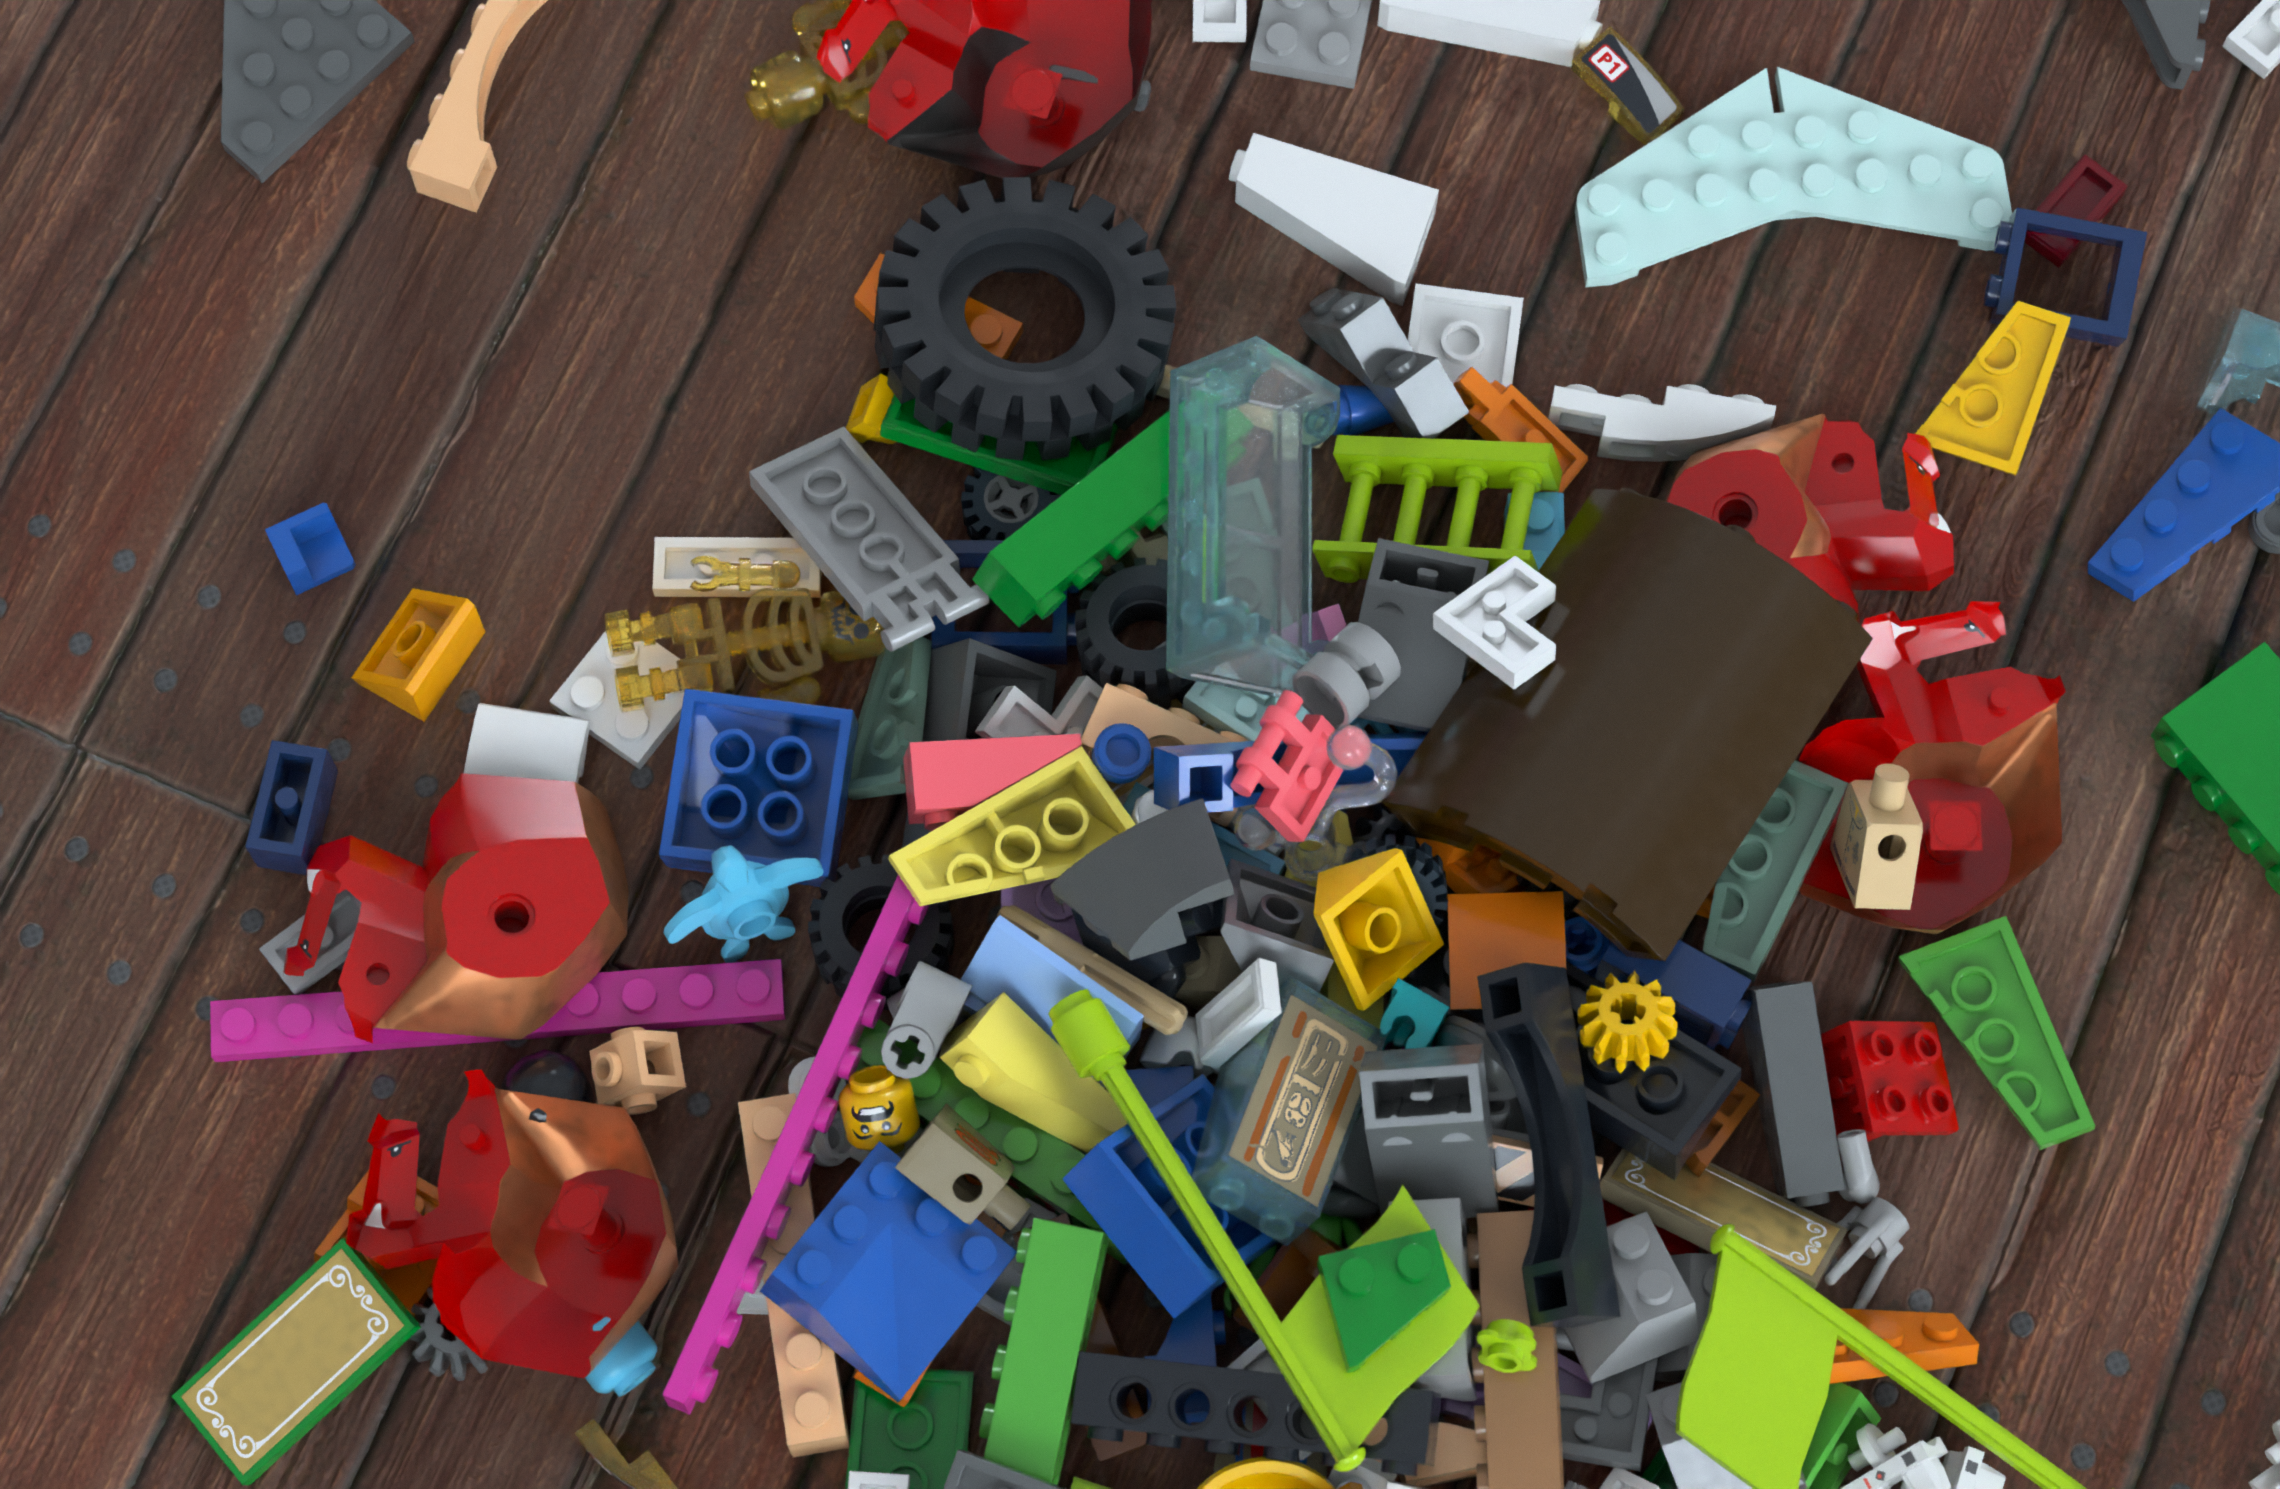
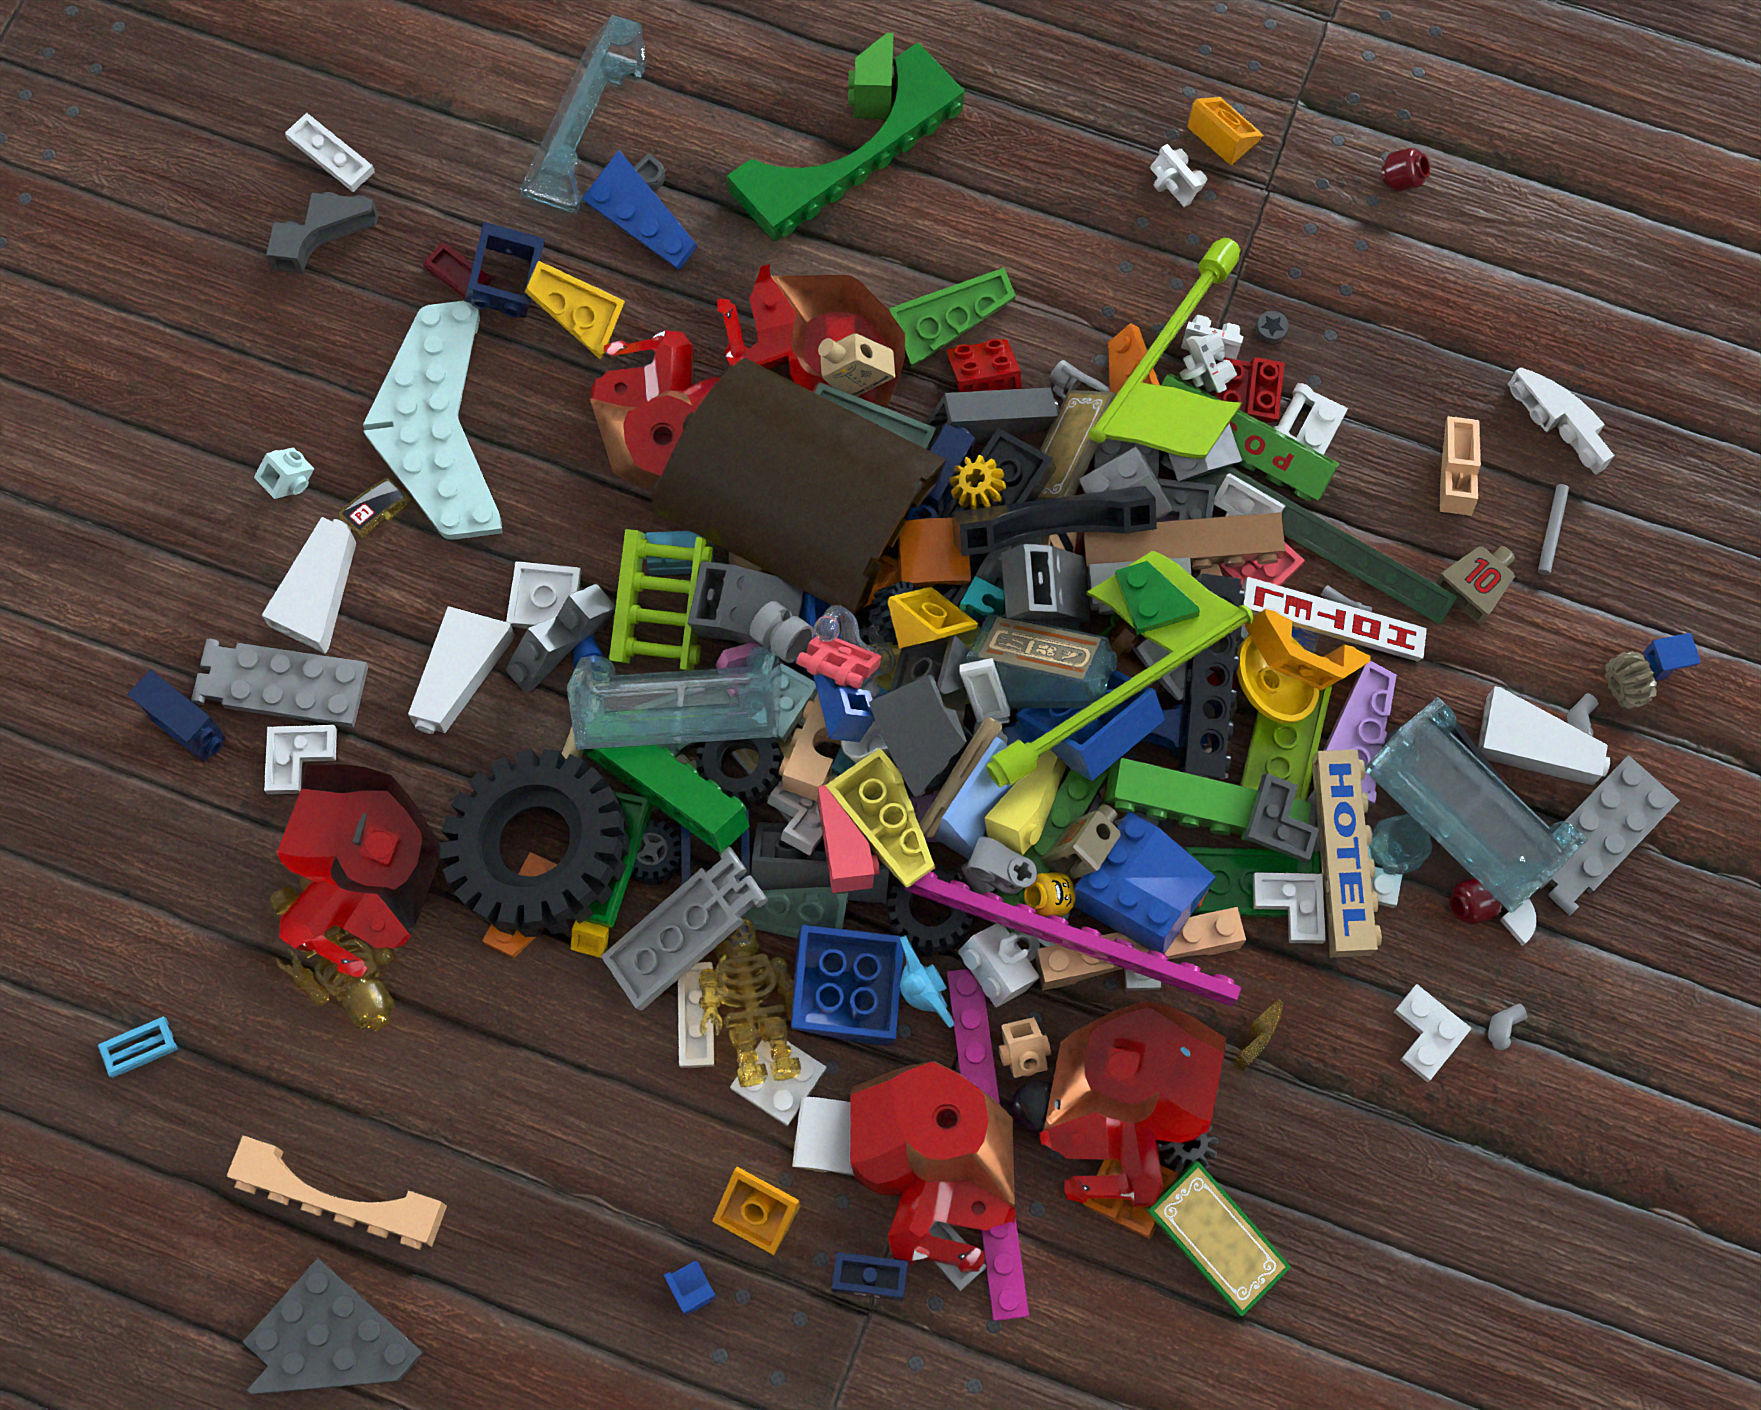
camera: 95 degrees left, 0 degrees up
(776, 1036) = (998, 964): none -> white brick
(1121, 753) = (827, 762): blue tile -> none
(1492, 624) = (750, 553): white plate -> none
(1507, 415) = (599, 563): orange hinge -> none
(1507, 1346) = (1168, 541): lime plate -> none
(1645, 431) = (596, 487): white slope -> none
(1859, 1172) = (1034, 380): light grey arm -> none

